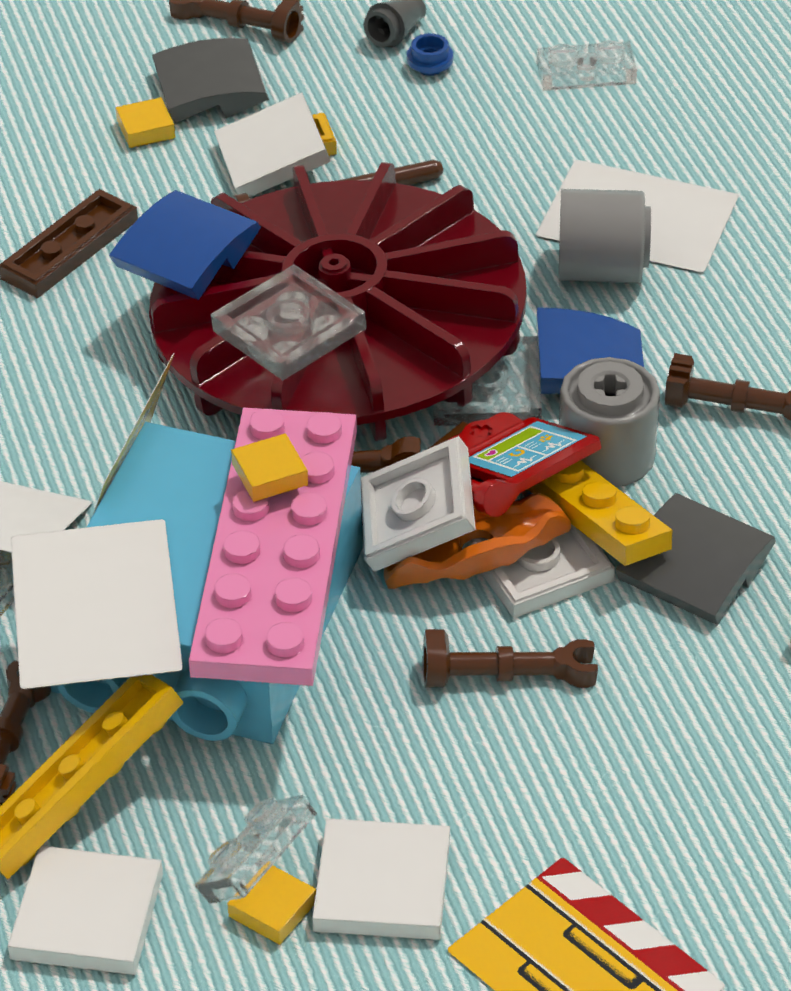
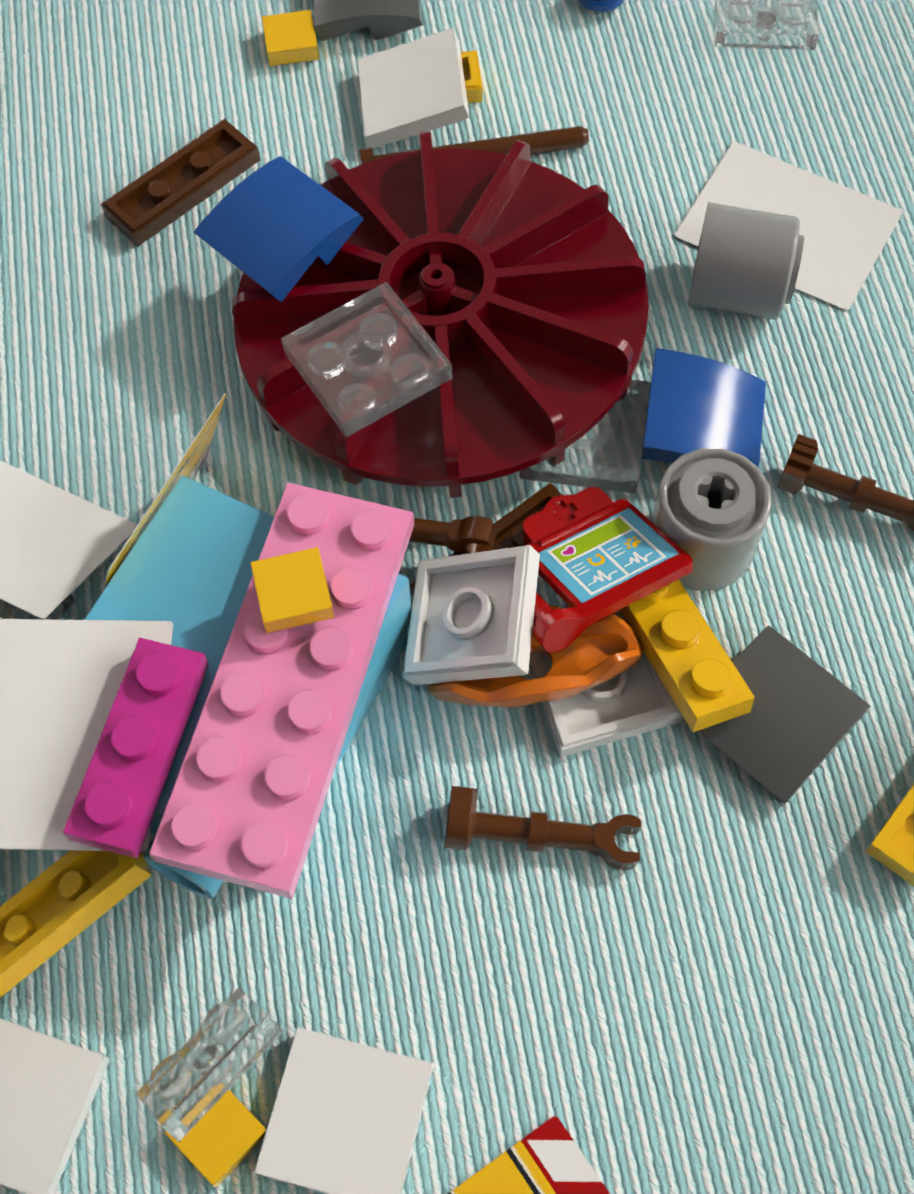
camera: 10 degrees right, 20 degrees up
(158, 598) = (137, 748): none -> dark pink plate

